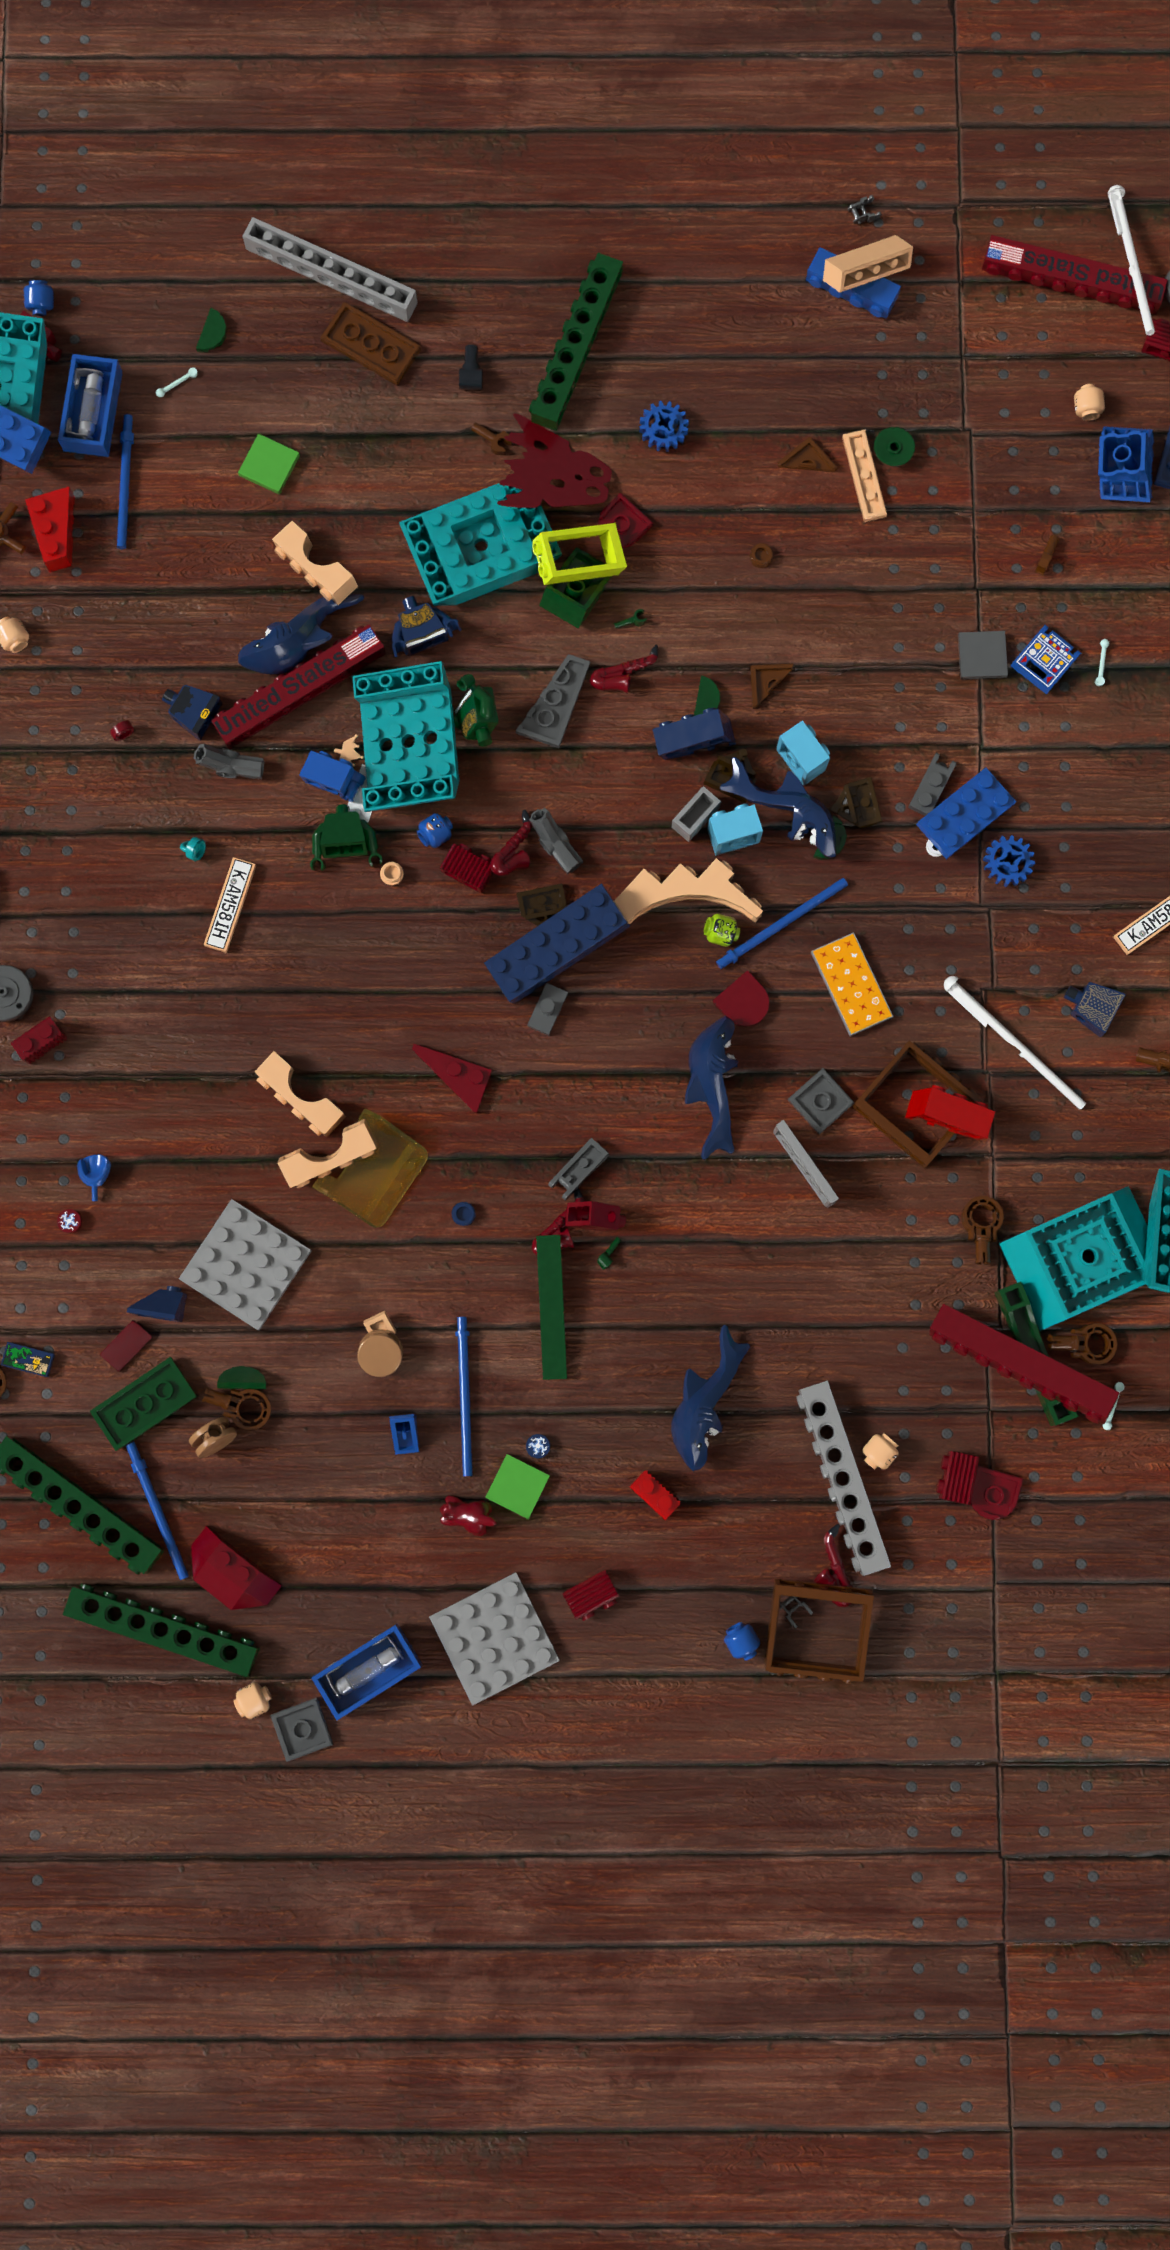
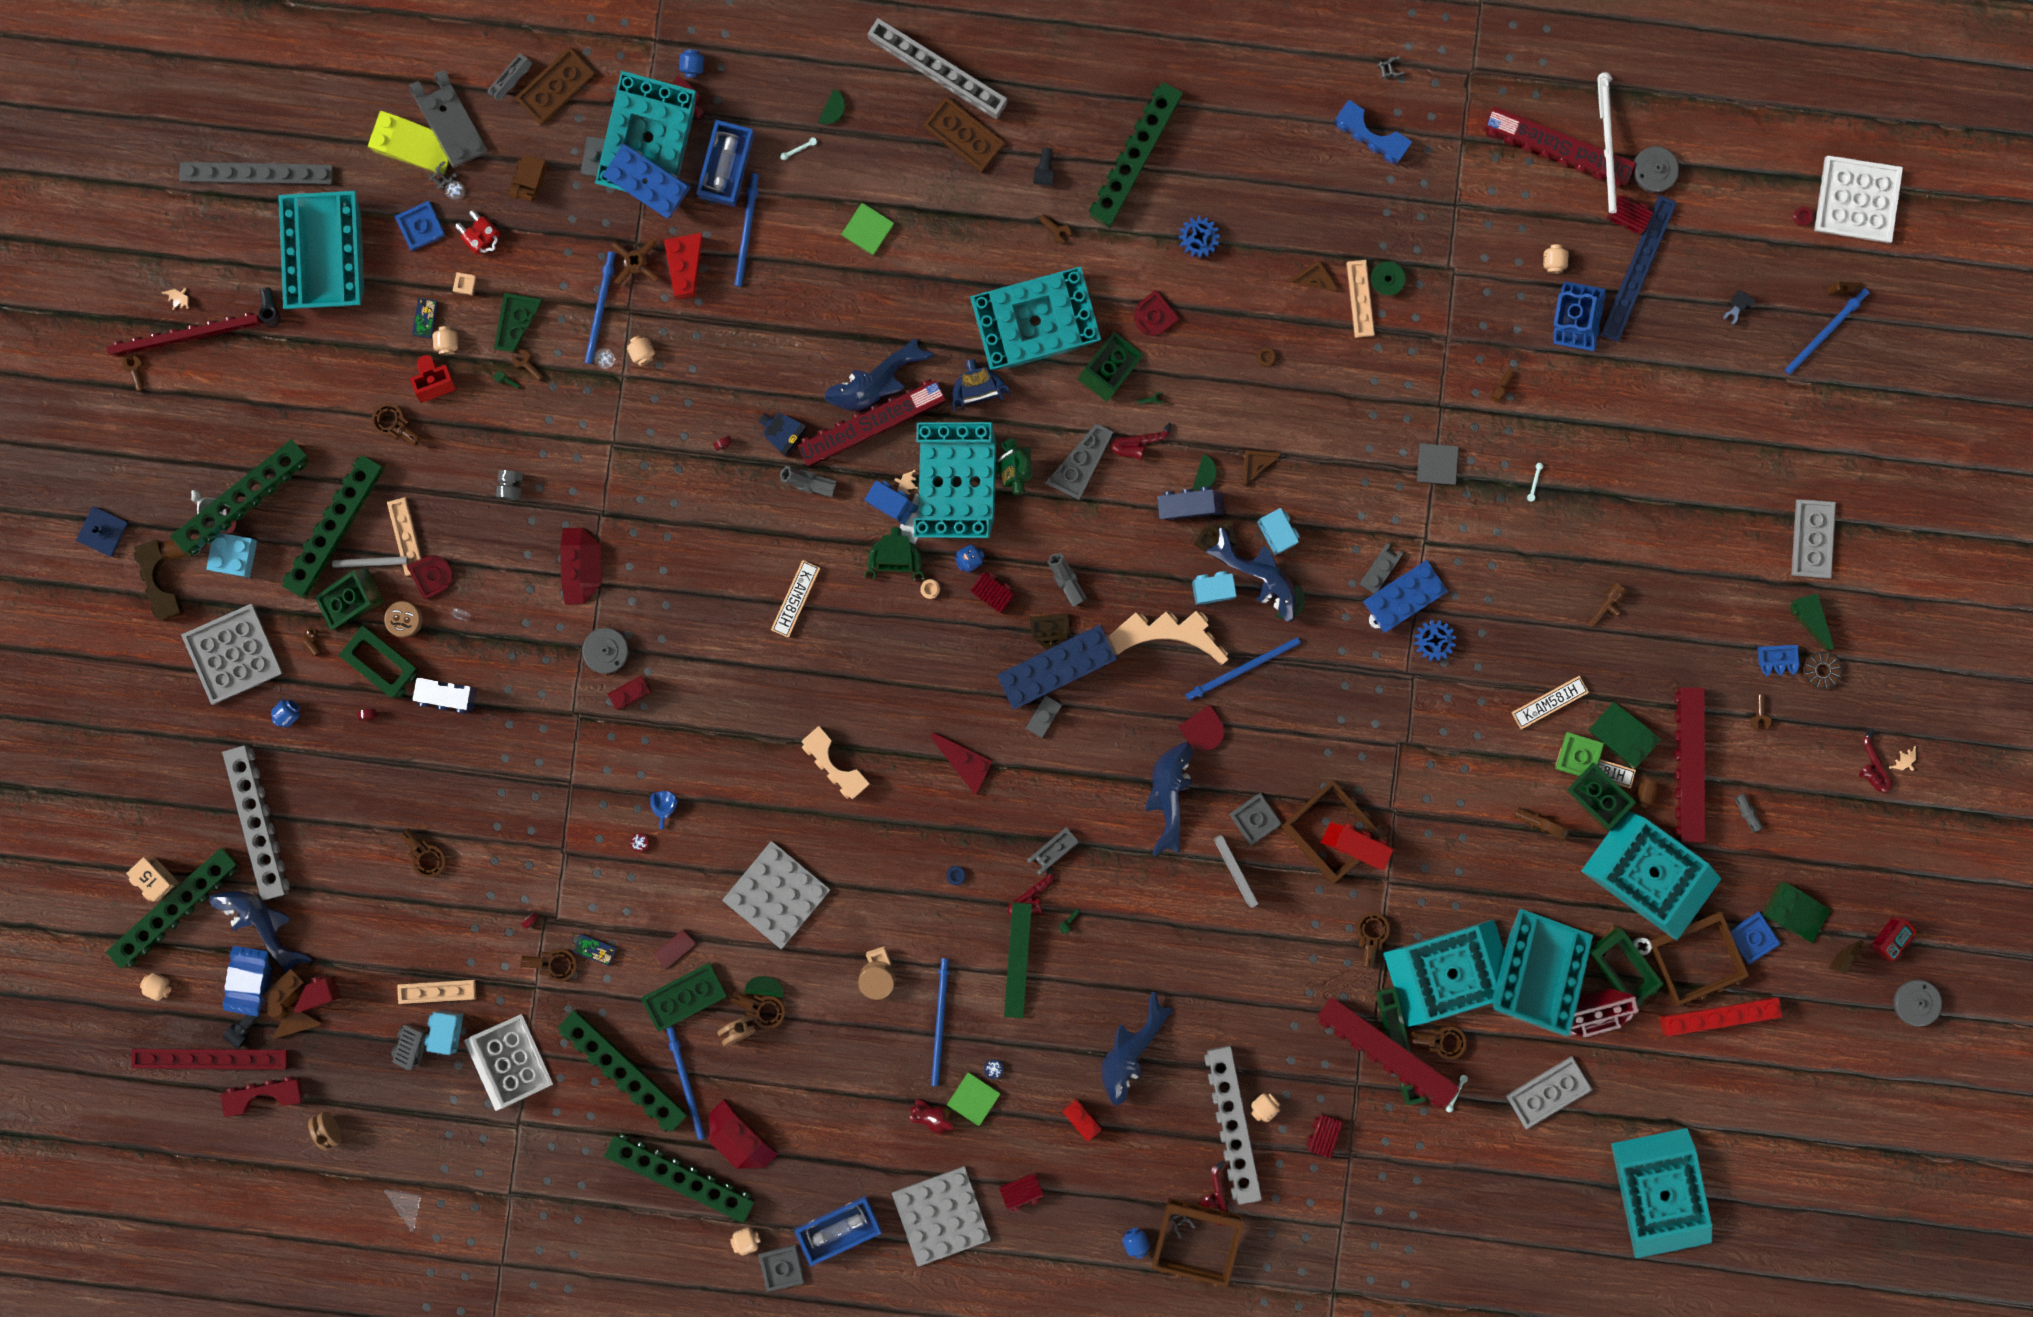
camera: 10 degrees right, 5 degrees up
(162, 1305) = (707, 921): dark blue slope -> none
(194, 848) = (772, 549): teal tile -> none
(300, 1166) = (830, 822): light nougat arch -> none
(332, 579) = (910, 338): light nougat arch -> none
(377, 1183) = (889, 834): clear yellow windscreen -> none
(404, 1433) = (889, 1046): blue slope -> none
(506, 859) = (1026, 590): dark red piece -> none
(556, 462) = (1098, 261): dark red piece -> none
(601, 1216) = (1066, 892): dark red torso -> none
(610, 544) = (1142, 337): neon yellow window -> none
(695, 814) = (1184, 571): light grey piece -> none
(721, 930) = (1192, 669): lime head -> none
(851, 984) = (1293, 726): light orange tile -> none
(859, 804) = (1318, 577): dark brown slope -> none
(867, 263) = (1386, 120): light nougat brick -> none
(985, 1018) = (1397, 767): white bar -> none
(995, 1493) = (1352, 1151): dark red tile -> none
(1049, 654) = (1491, 471): blue container -> none
(1094, 1006) = (1487, 769): dark blue torso -> none

